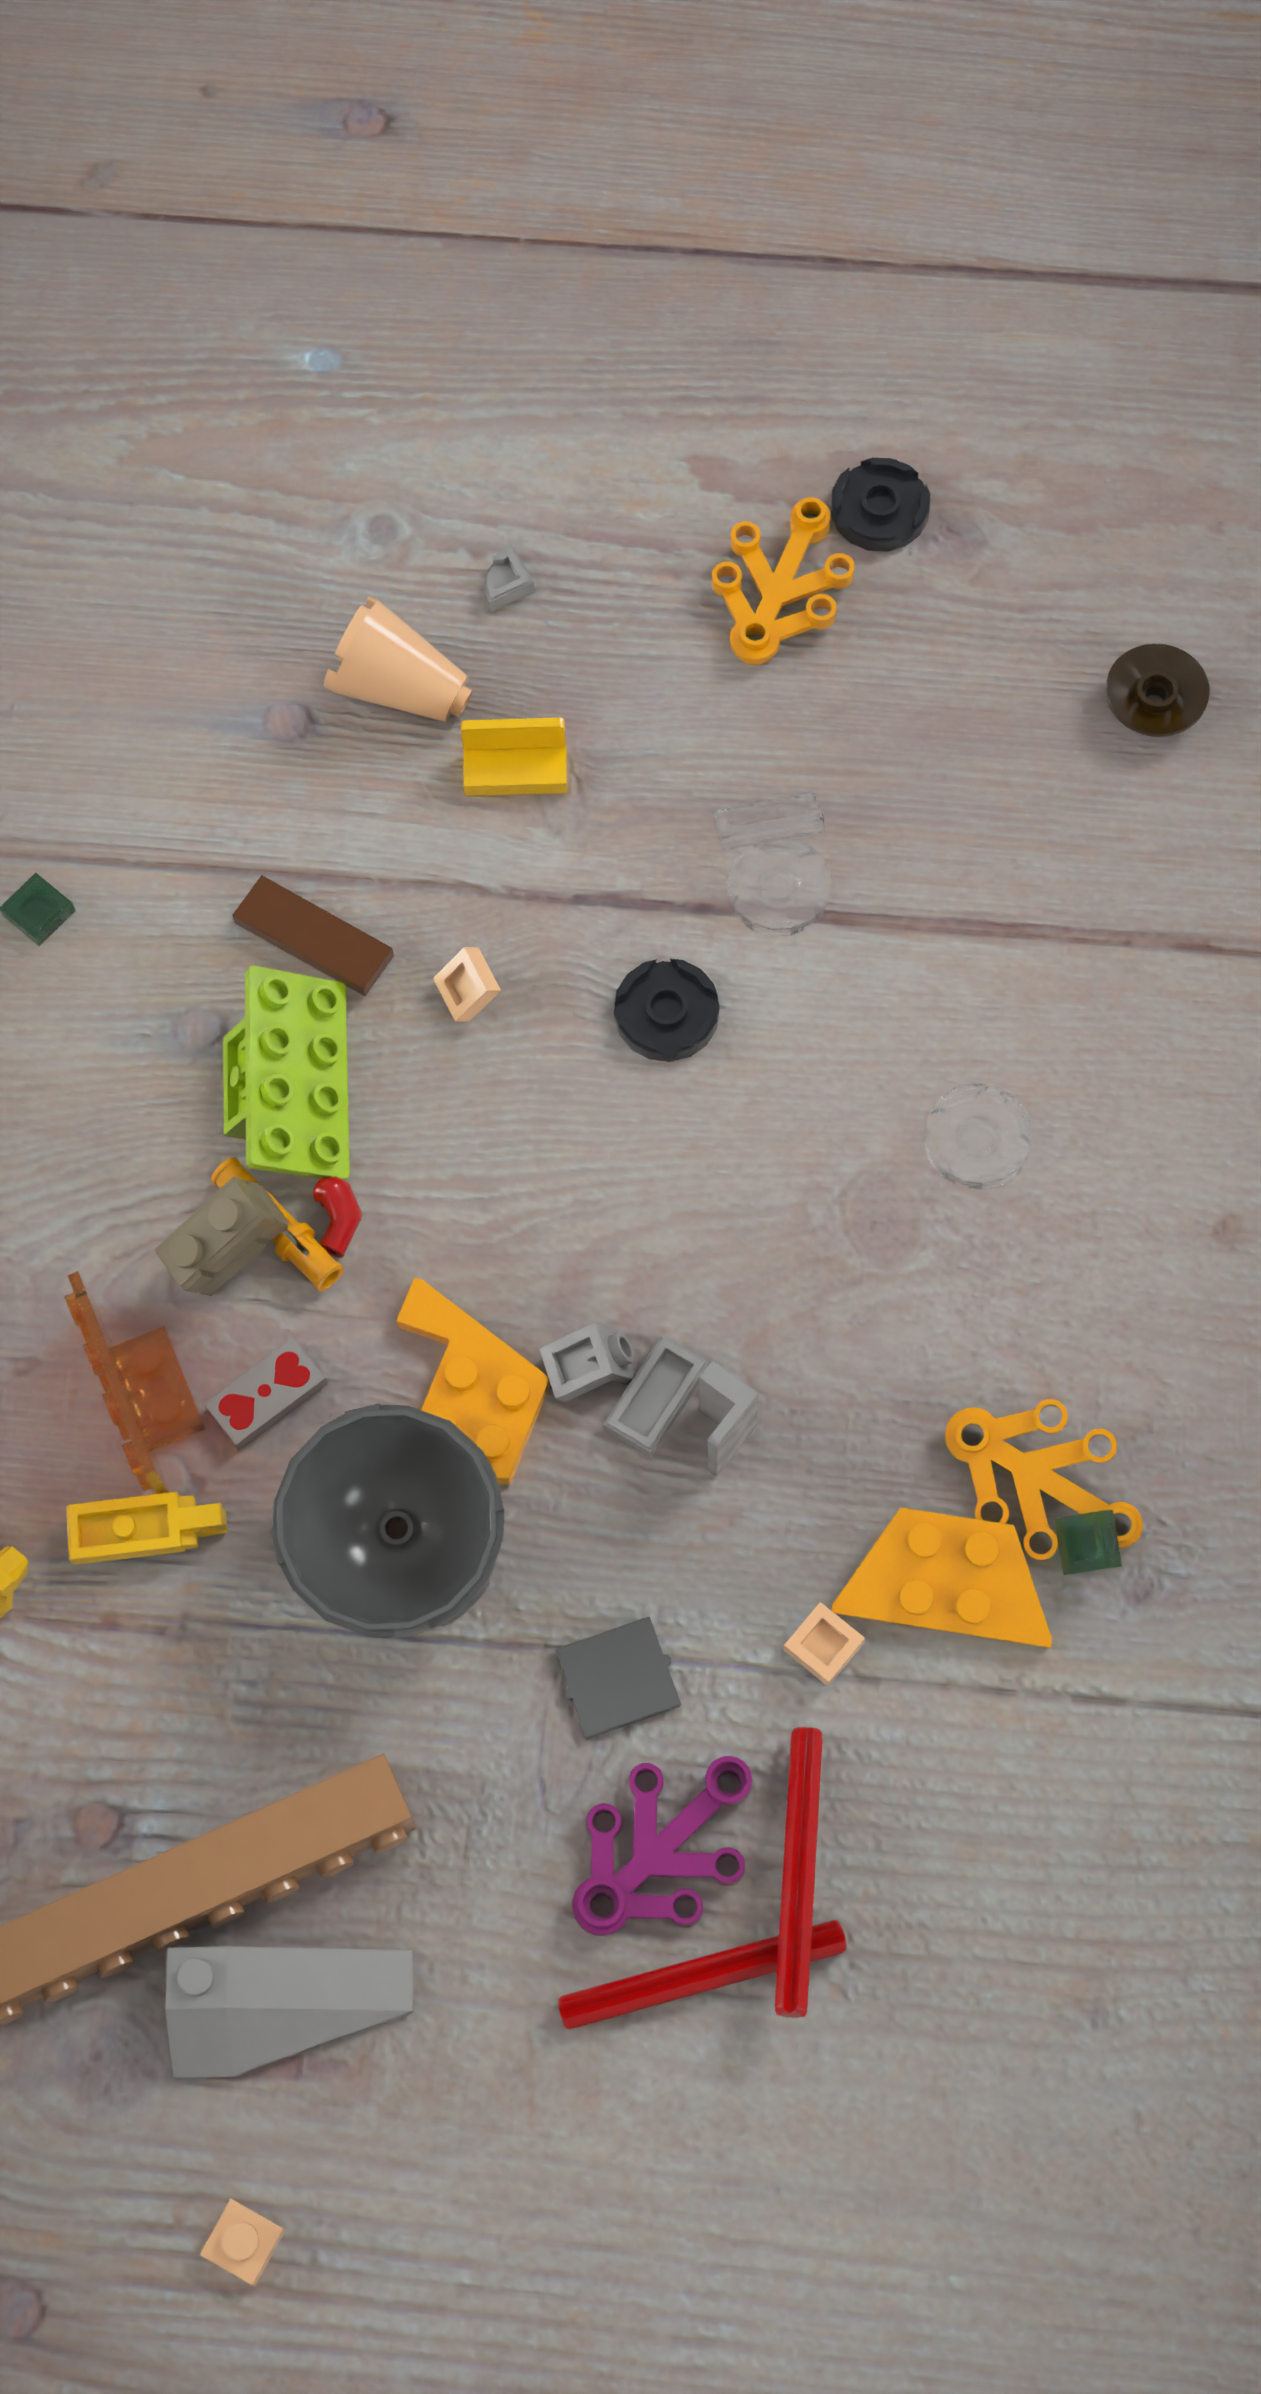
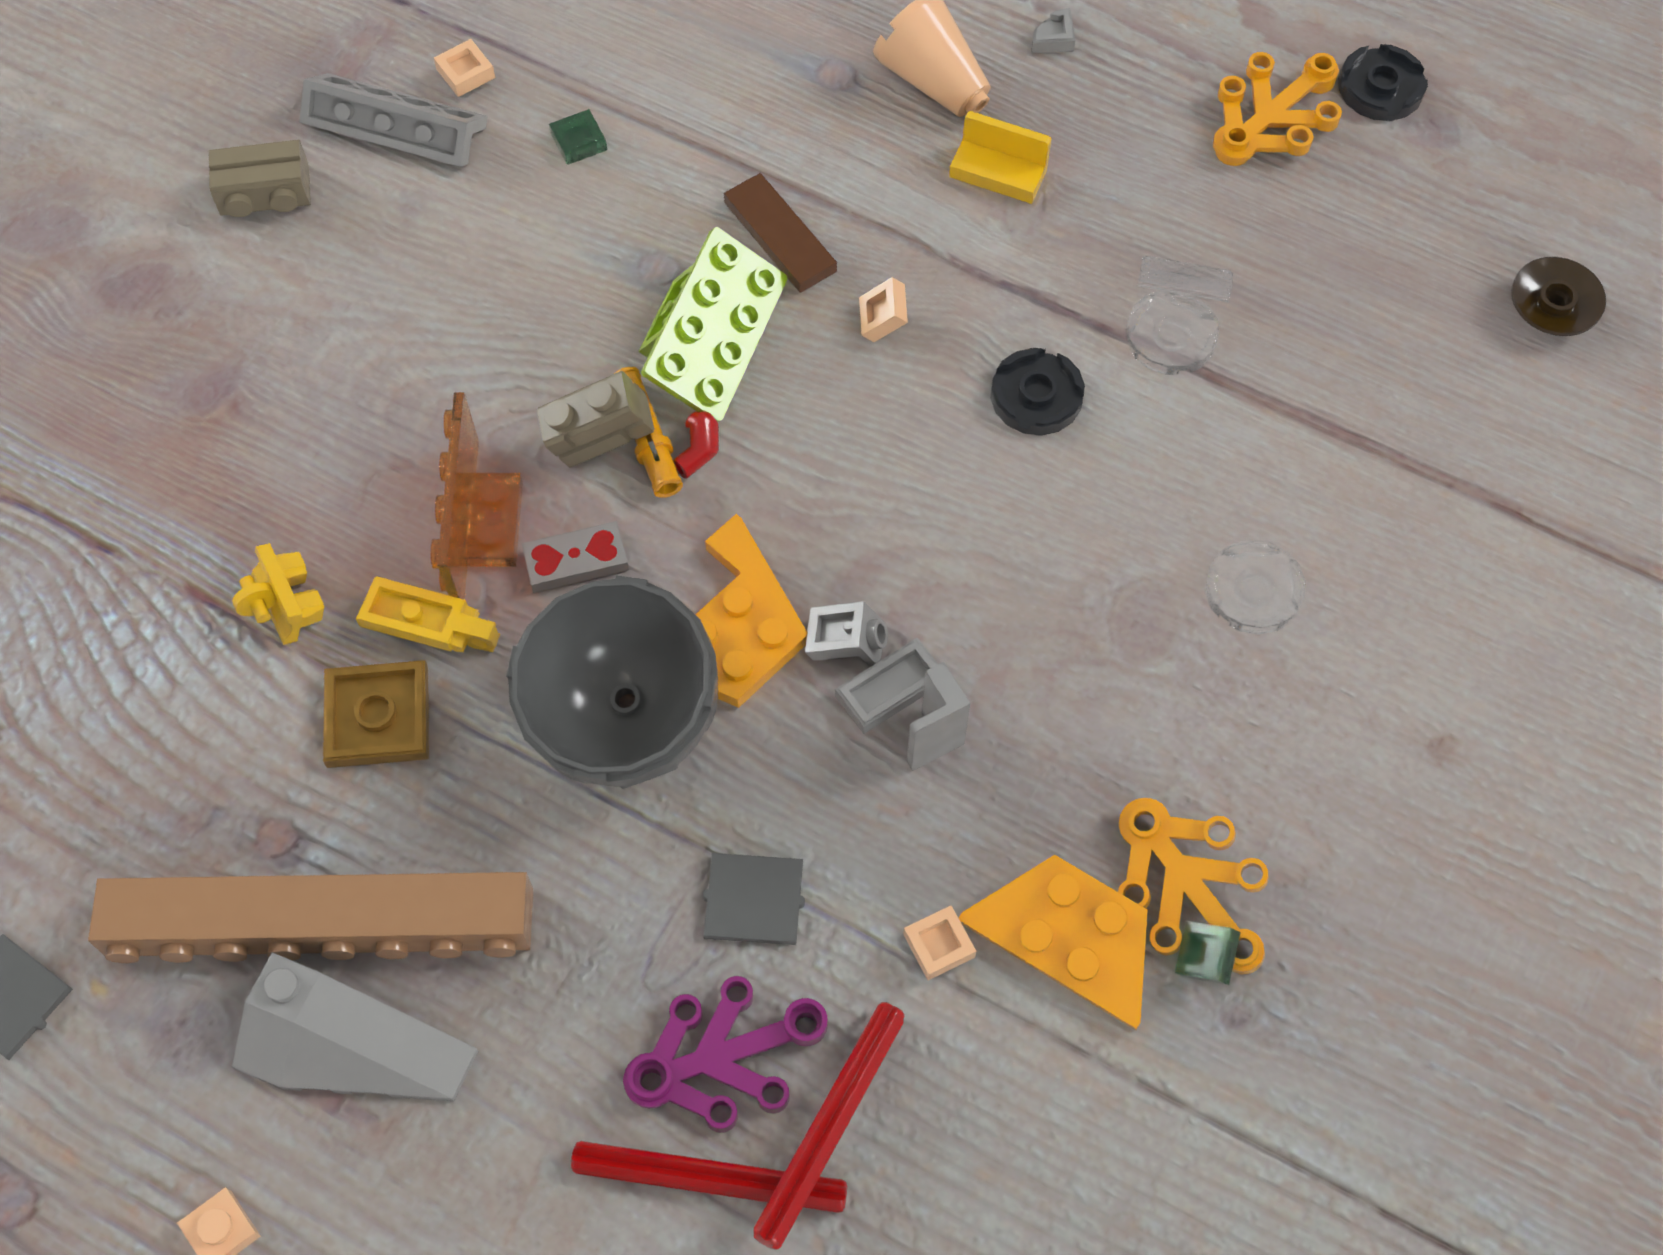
camera: 20 degrees right, 5 degrees down
(137, 1651) = (376, 714): none -> pearl gold tile

